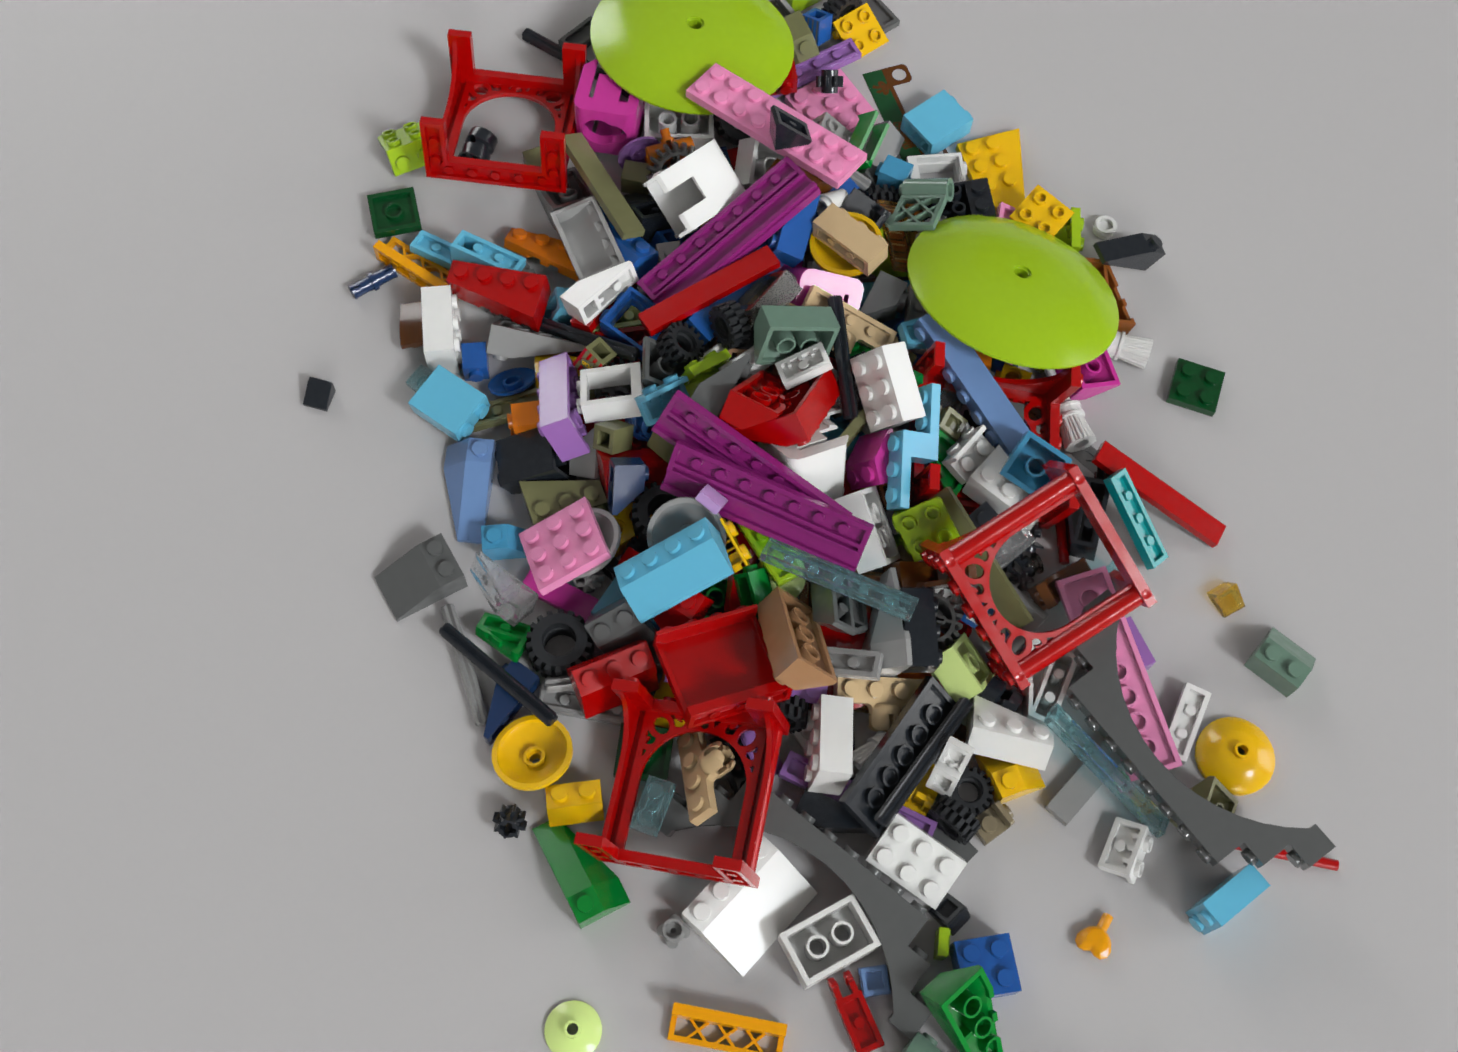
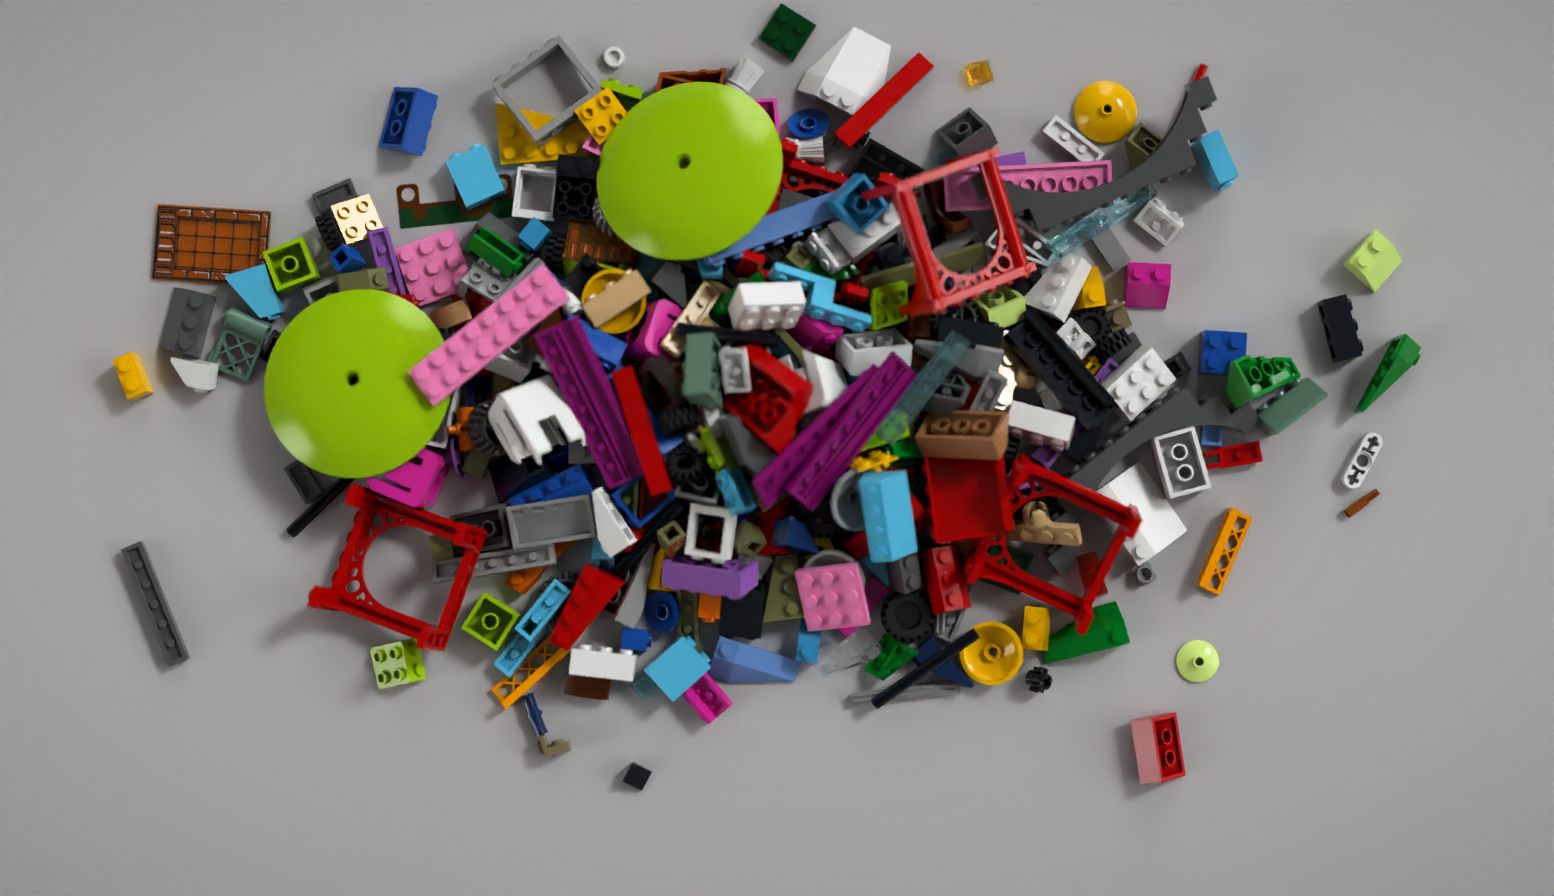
camera: 70 degrees left, 20 degrees up
(337, 301) = (557, 746): none -> dark tan bracket
(394, 212) = (467, 685): dark green plate -> none
(419, 446) = (707, 698): none -> dark pink bracket
(421, 578) = (824, 716): dark grey slope -> none
(446, 999) = (1158, 748): none -> red slope
(468, 212) = (491, 621): none -> lime brick
(479, 144) = (417, 600): black wheel -> none
(537, 219) = (498, 562): none -> light grey plate
(603, 187) = (499, 498): olive tile -> none
(652, 806) = (1056, 570): clear light blue plate -> none
(669, 848) = (1087, 566): none -> clear red slope
(711, 499) = (839, 473): lavender tile -> none
(787, 130) = (510, 327): black slope -> none
(829, 81) = (417, 265): black gear -> none
(920, 193) = (568, 213): sand green piece -> none
(941, 943) = (1198, 379): lime tile -> none
(974, 58) = (408, 121): none -> blue slope
(1024, 183) = (564, 119): none -> light grey window
(1042, 850) = (1147, 285): none -> dark pink slope
(1096, 938) = (1217, 264): light orange rock -> none
(1103, 424) = (808, 123): none -> blue dish
(1130, 251) = (653, 49): black slope -> none
(1136, 518) = (903, 127): teal plate -> none
(1166, 598) = (967, 134): none -> dark grey slope
(1178, 457) = (848, 72): none -> white wedge
(1280, 662) = (1040, 48): sand green slope -> none

